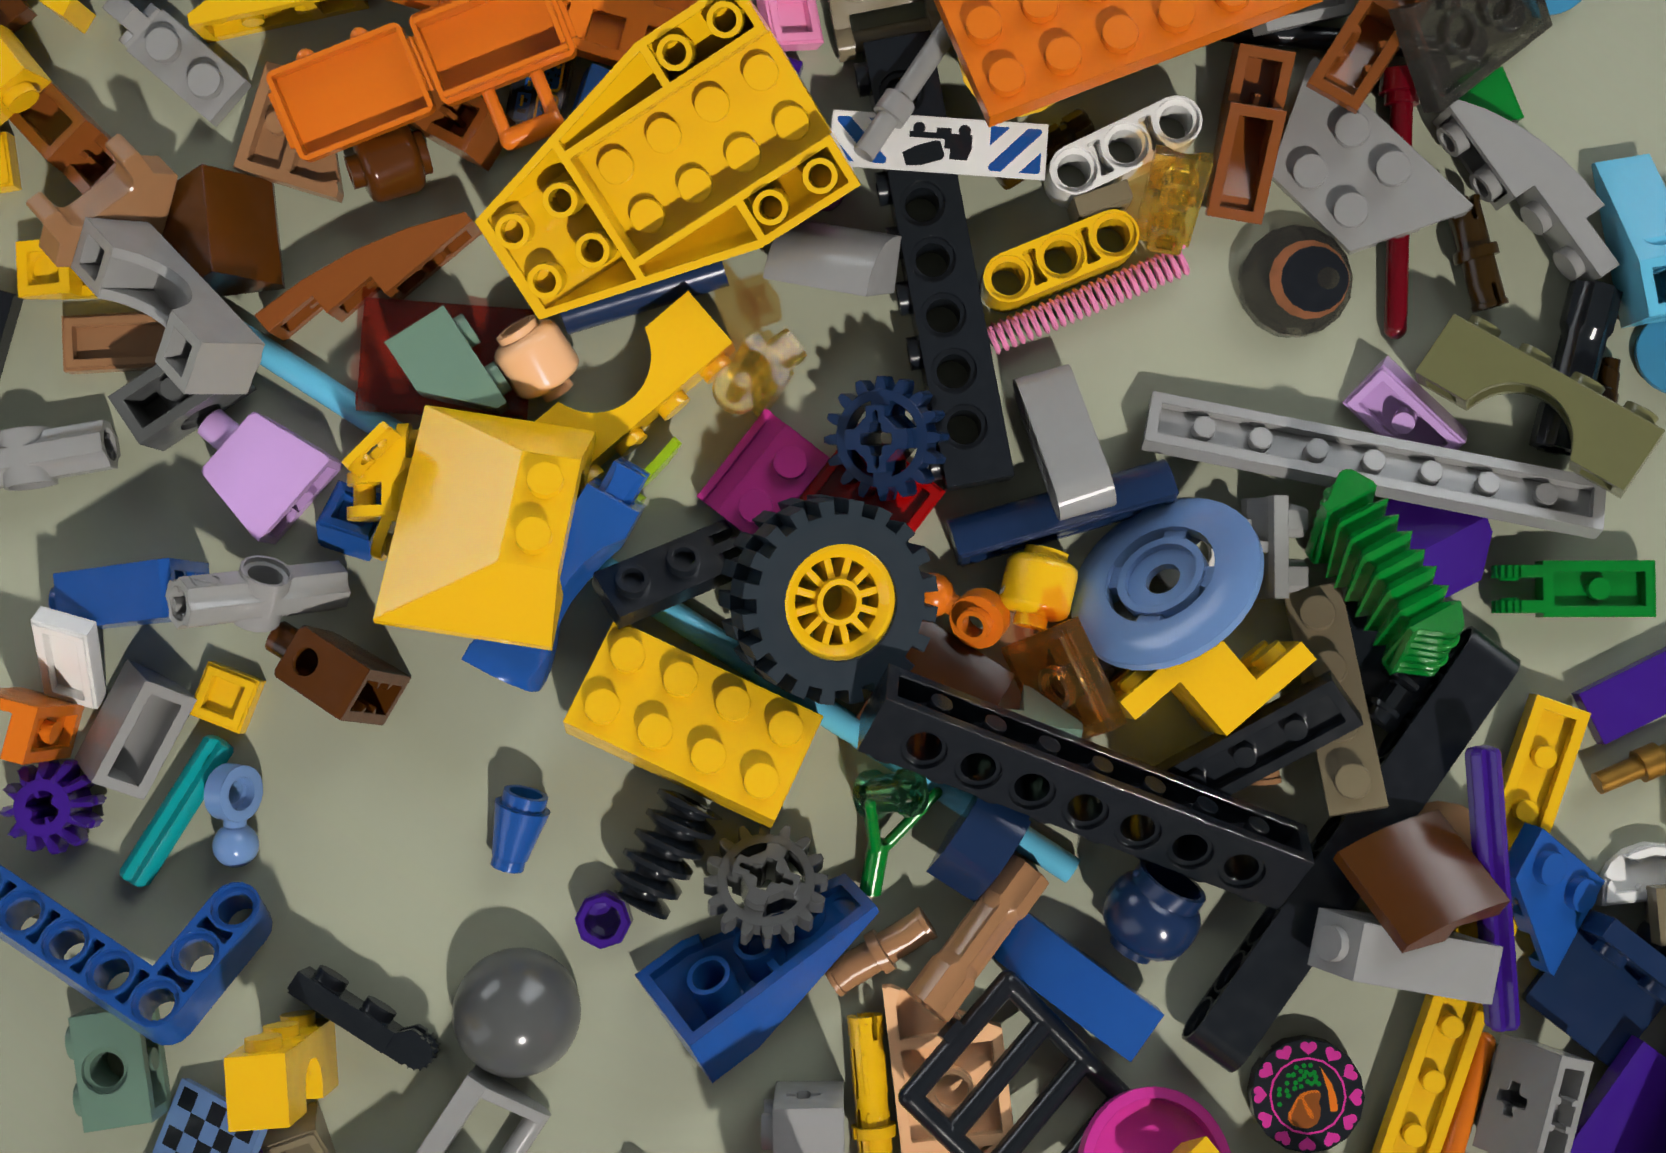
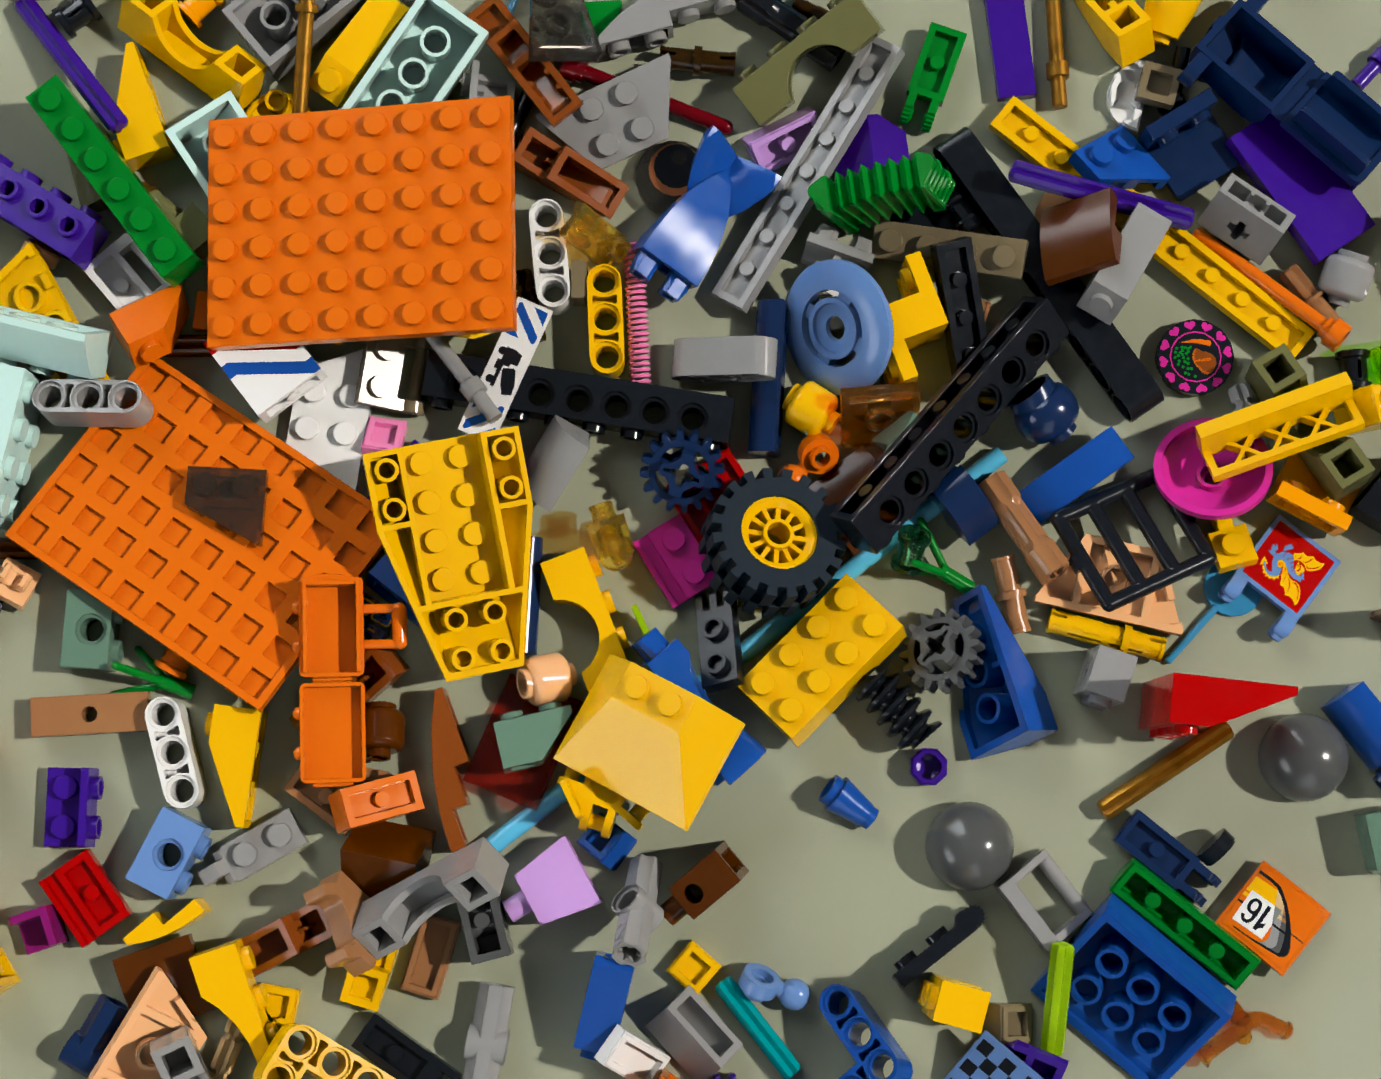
camera: 75 degrees left, 5 degrees down
(285, 190) = (375, 801): none -> orange panel
(1233, 330) = (692, 228): none -> blue hips

